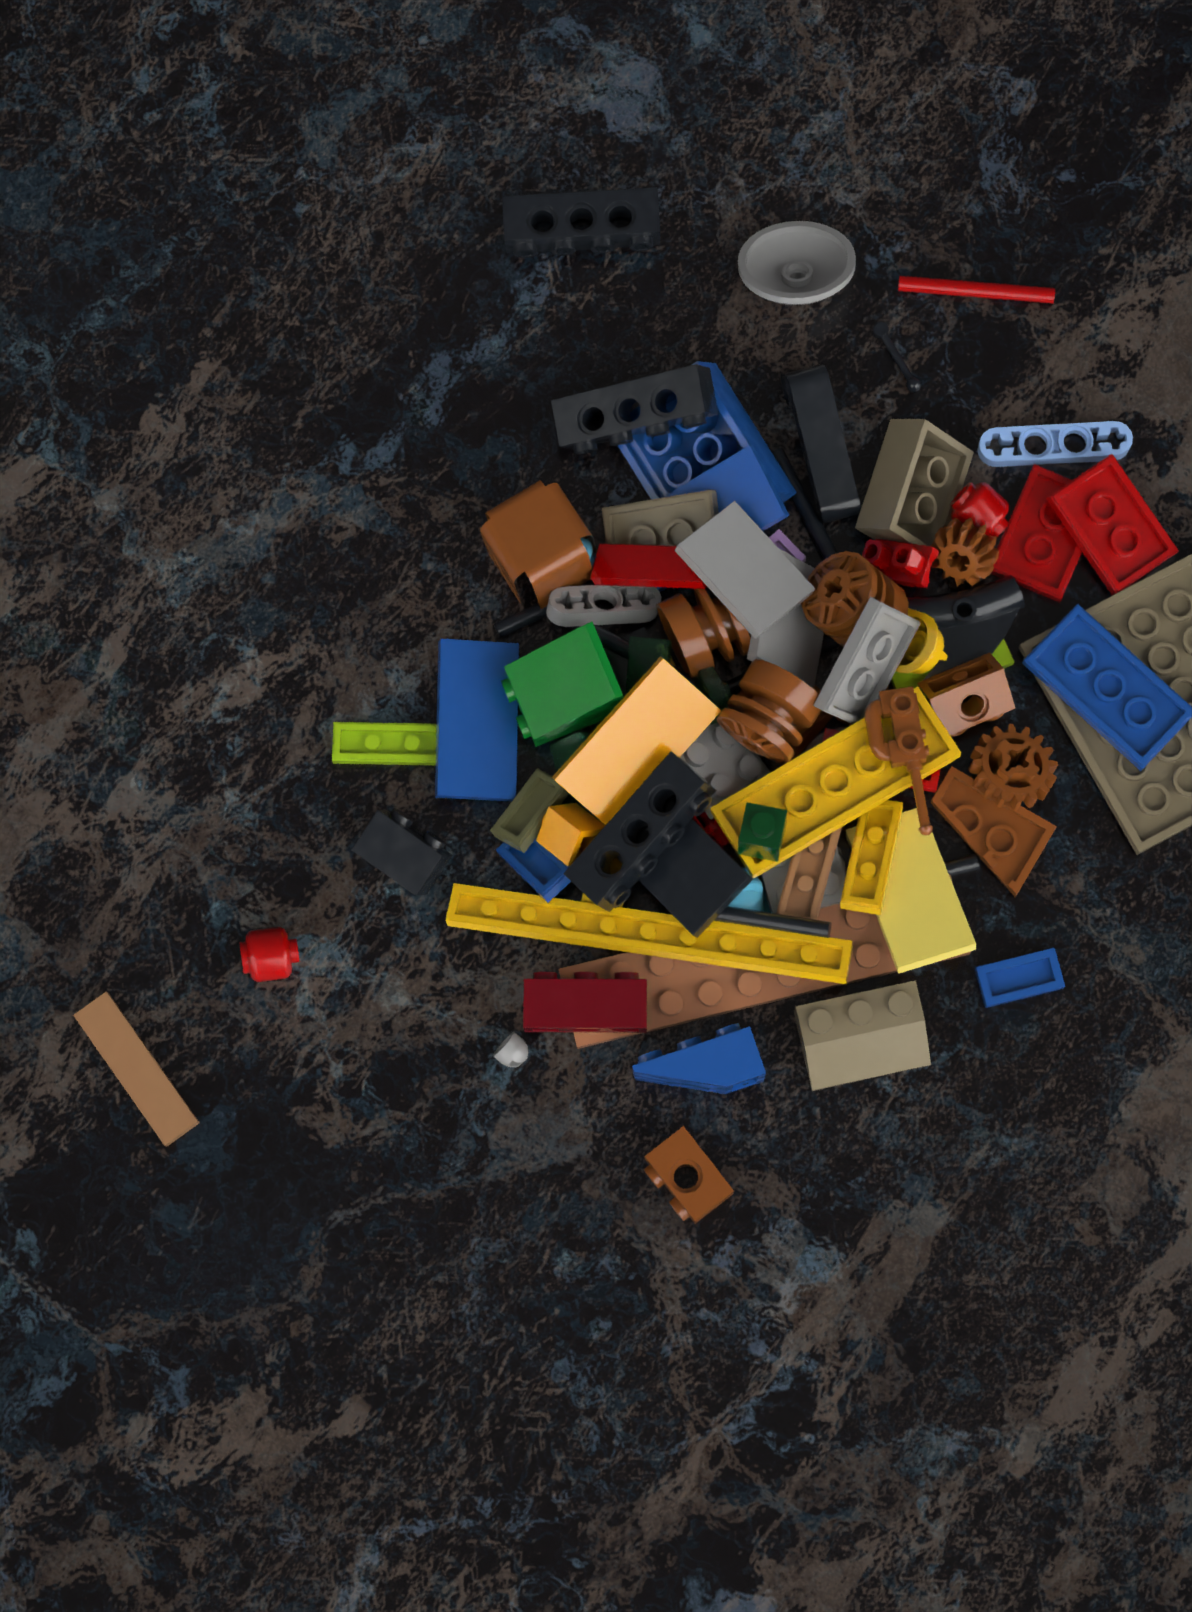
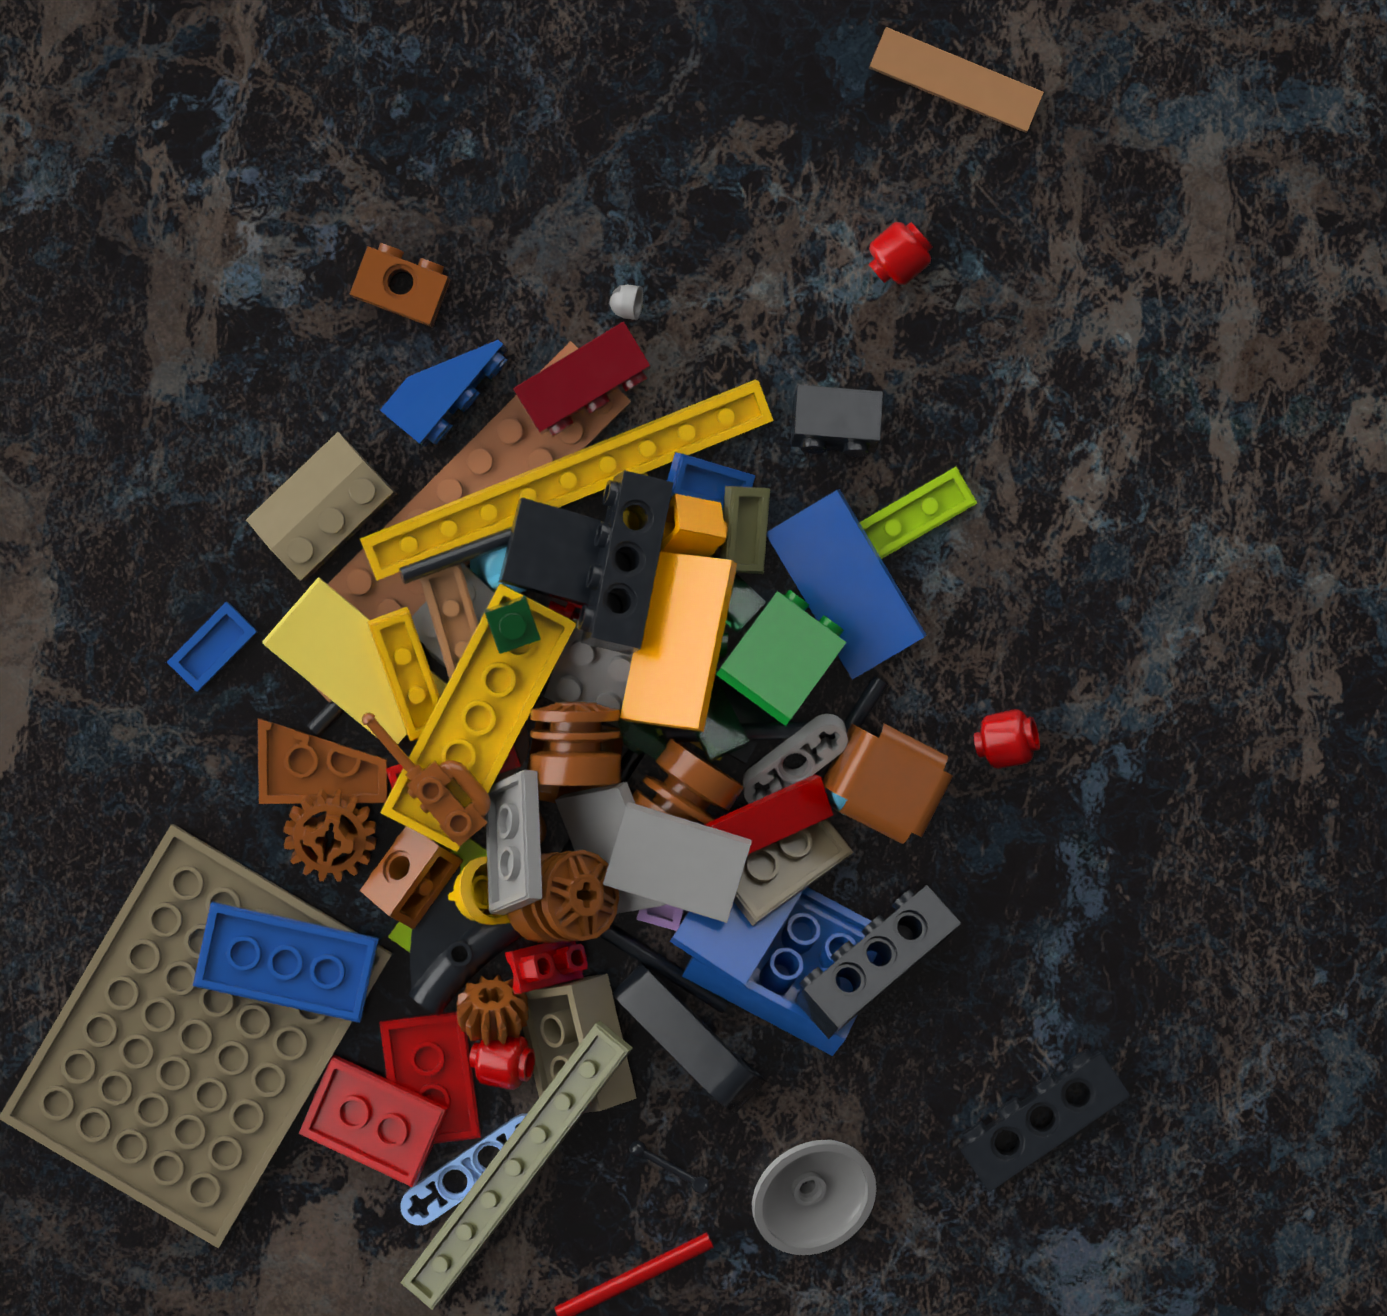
camera: 145 degrees right, 10 degrees up
(426, 524) = (1007, 739): none -> red head
(1016, 420) = (516, 1164): none -> olive tile

